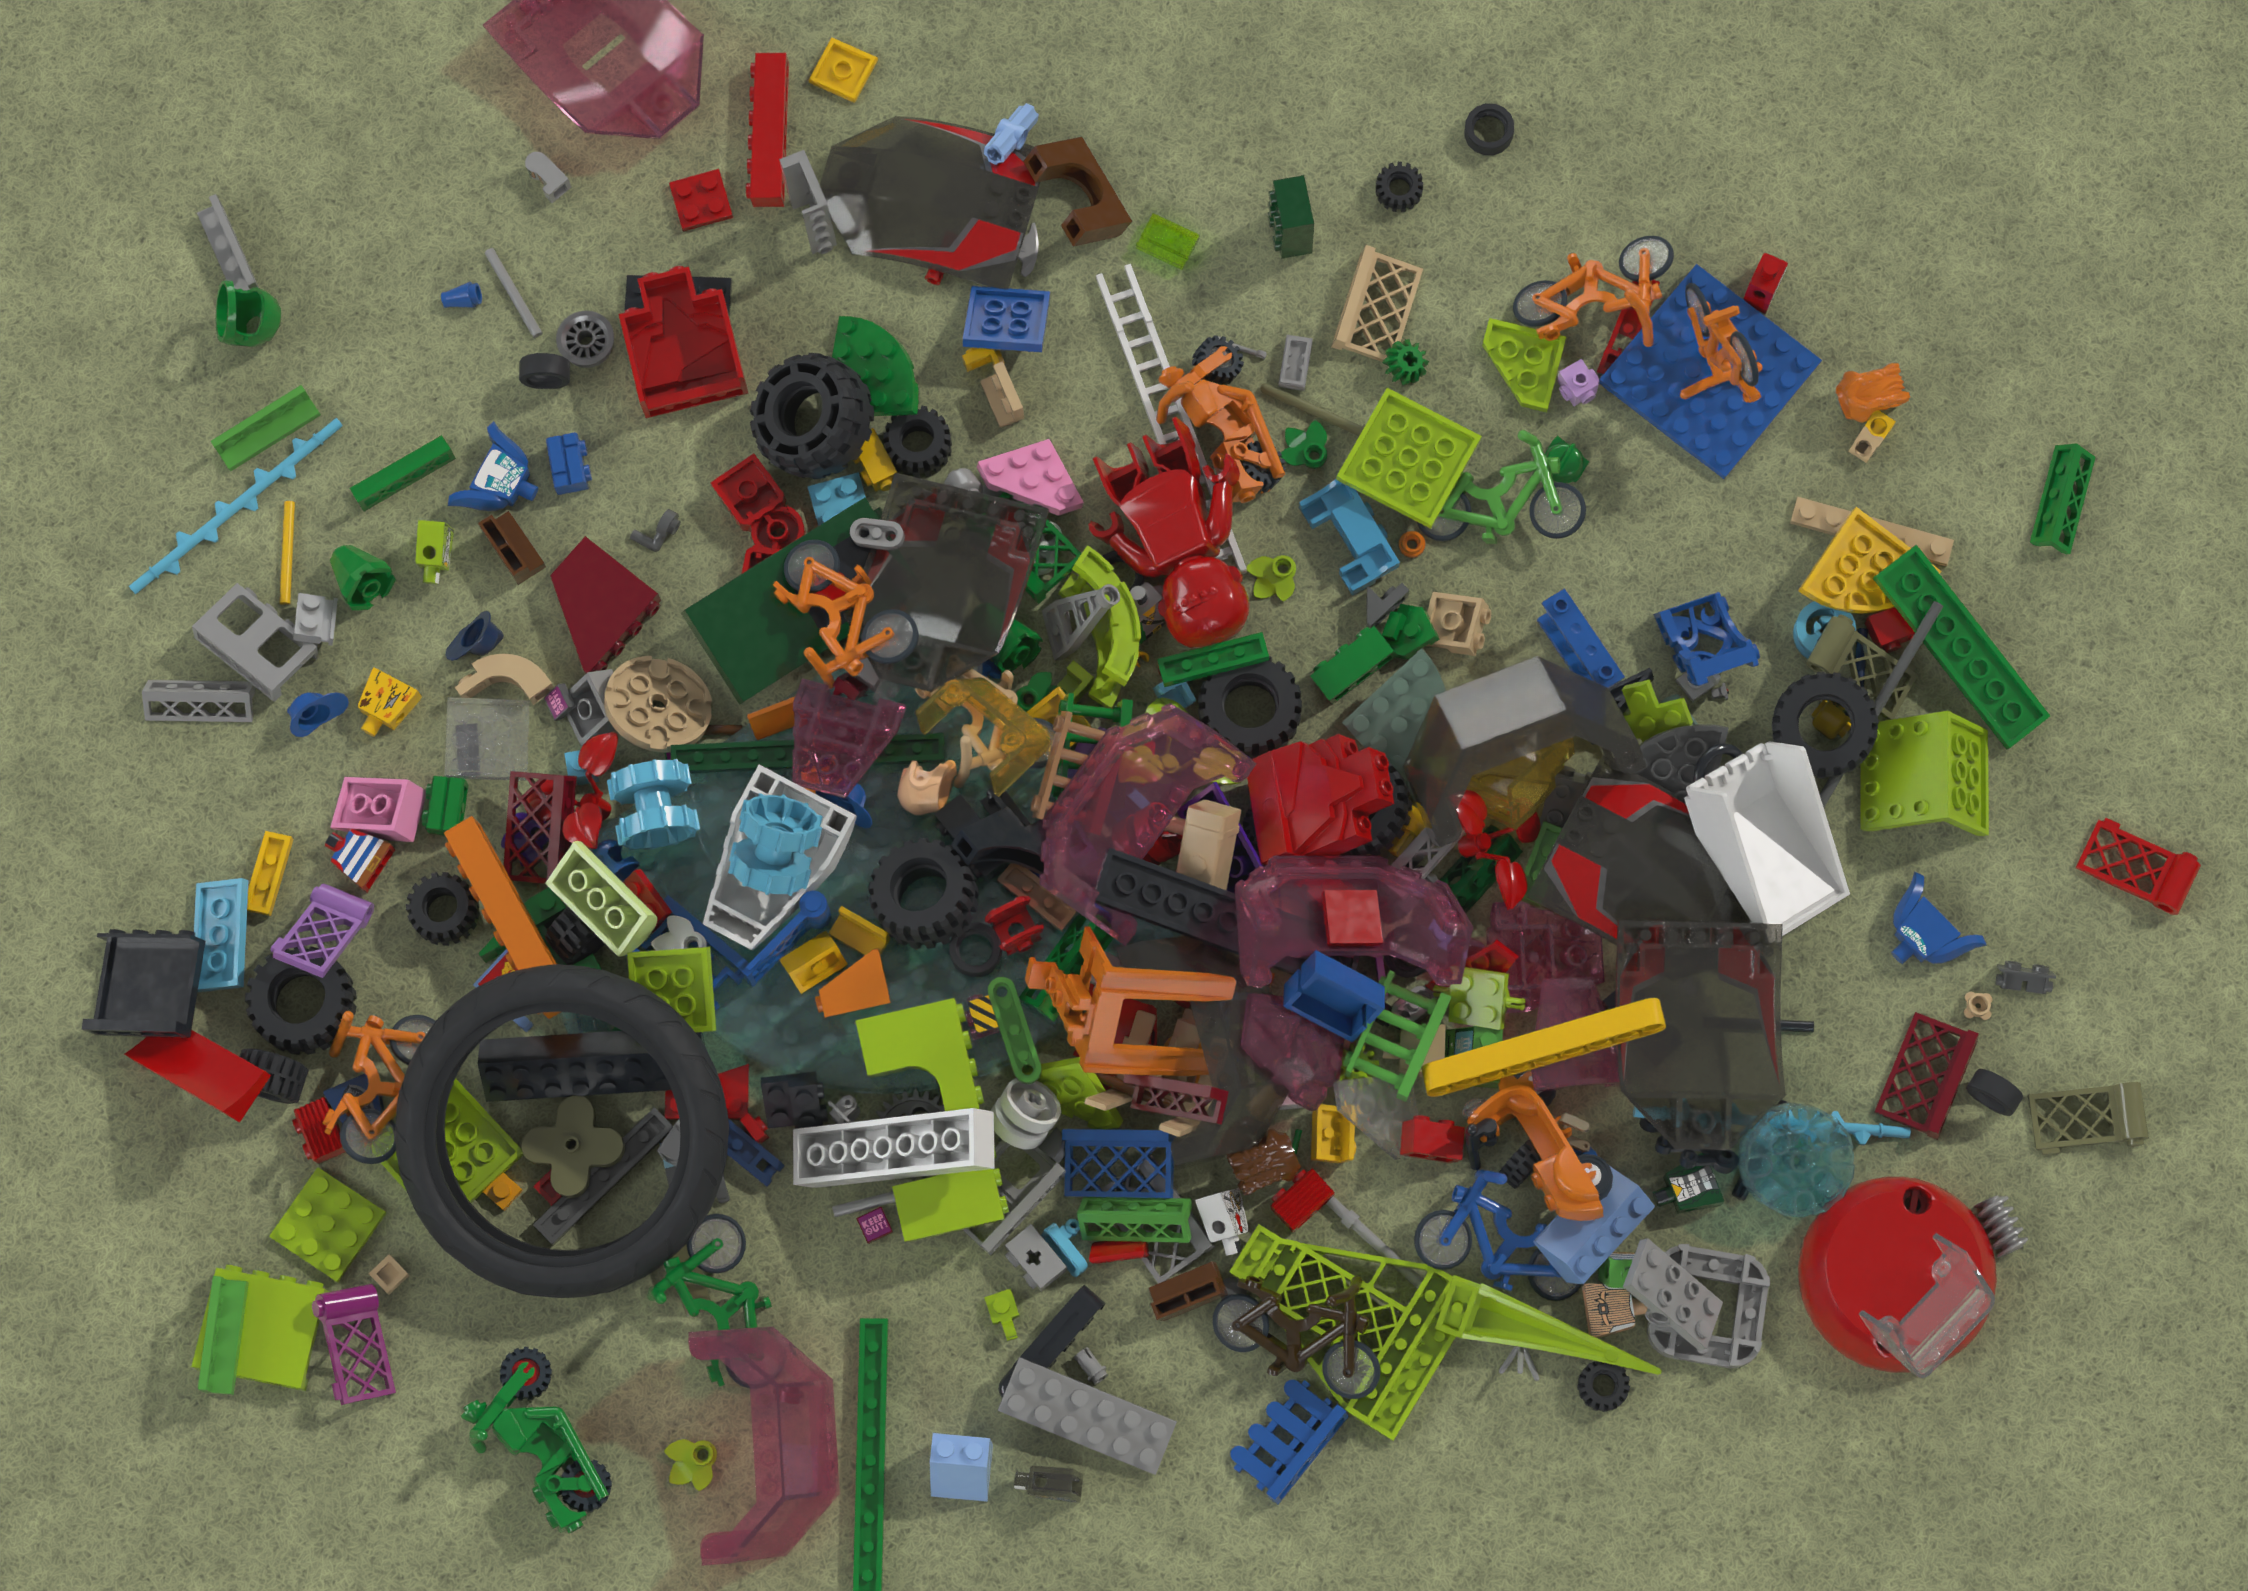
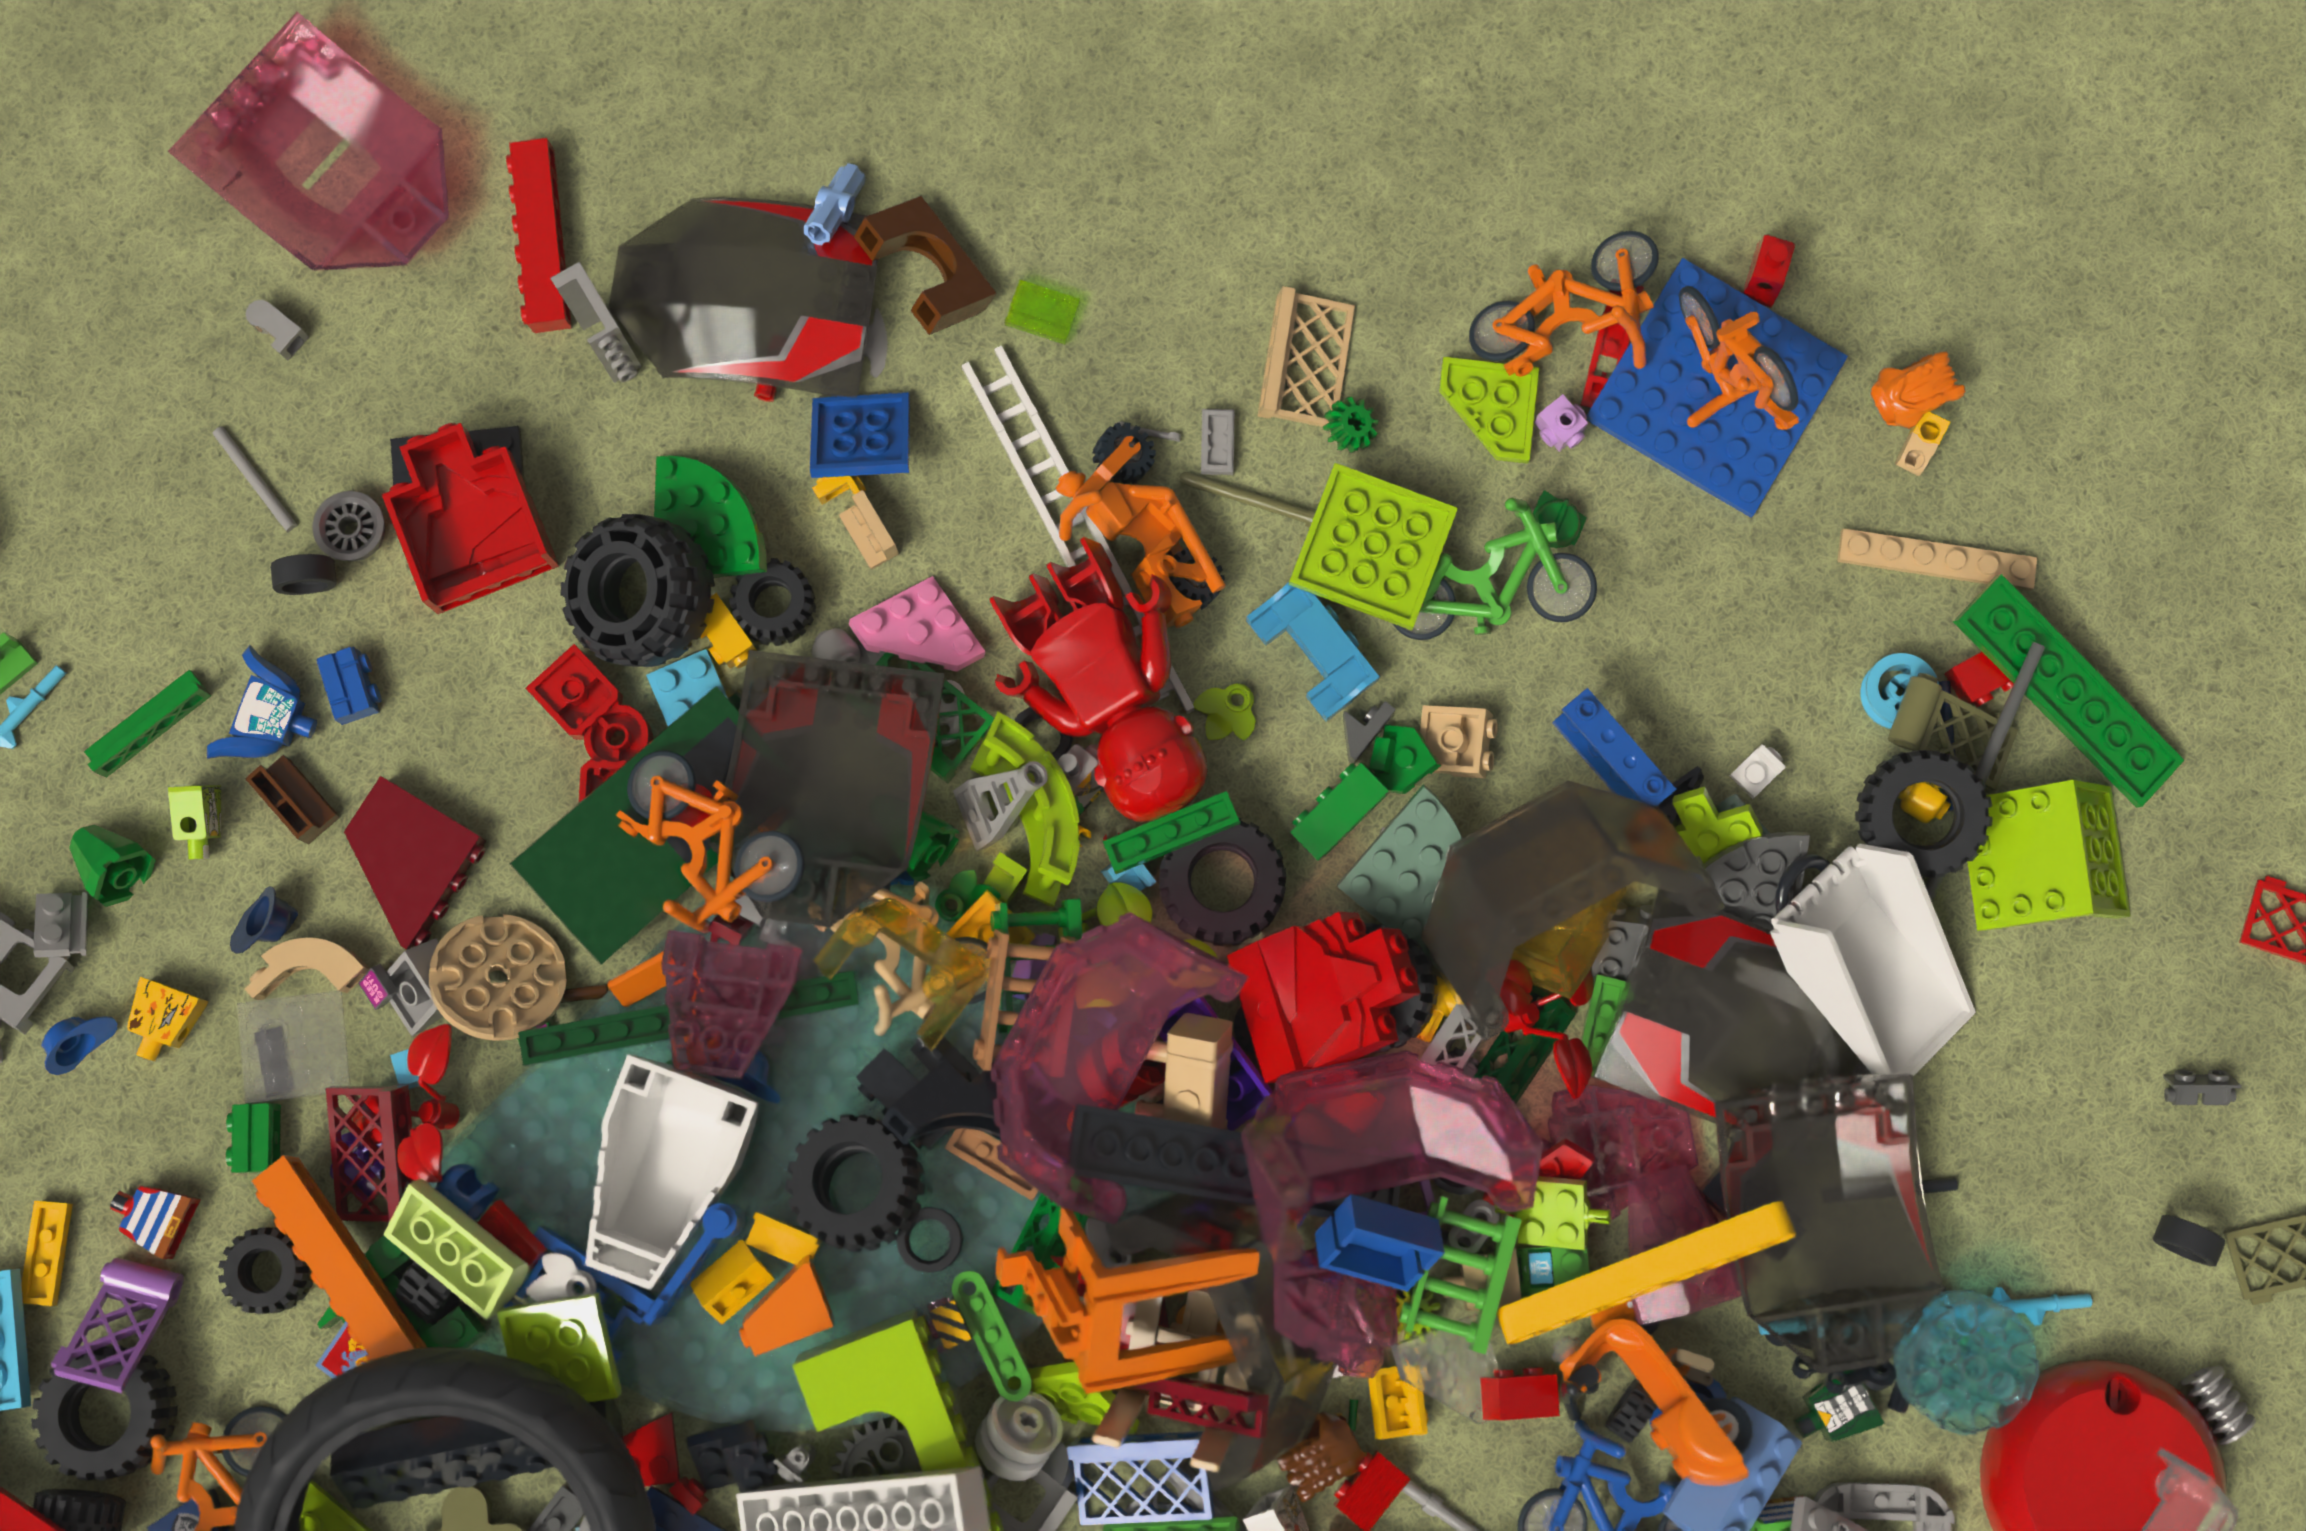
camera: 10 degrees left, 5 degrees up
(287, 552) = (18, 842): yellow bar -> none
(379, 808) = (172, 1152): bright pink slope -> none
(462, 296) = (194, 491): blue cone -> none
(650, 789) = (501, 1105): medium azure piece -> none
(667, 525) = (480, 746): dark grey plate -> none
(700, 200) = (468, 333): red plate -> none
(777, 837) = (660, 1159): medium azure piece -> none
(843, 70) = (620, 149): yellow tile -> none
(878, 534) = (738, 732): light grey plate -> none
(926, 791) = (843, 1051): light nougat helmet -> none
(1015, 913) = (957, 1200): red piece -> none
(1291, 217) = (1189, 264): dark green brick -> none
(1303, 443) = (1241, 540): green plate -> none
(1352, 918) = (1387, 1139): red tile -> none
(1403, 173) = (1312, 190): black tyre -> none
(1411, 536) = (1389, 638): orange plate -> none
(1481, 146) = (1402, 145): black tyre -> none
(1701, 664) = (1793, 746): blue fence -> none
(1720, 692) = (1785, 782): light grey piece -> none
(1849, 563) = (1923, 604): yellow plate -> none
(1926, 931) = (2075, 1047): blue torso -> none
(1951, 1077) = (2131, 1235): dark red fence -> none
(1982, 999) = (2158, 1128): tan plate -> none
(2059, 494) = (2155, 488): green fence -> none

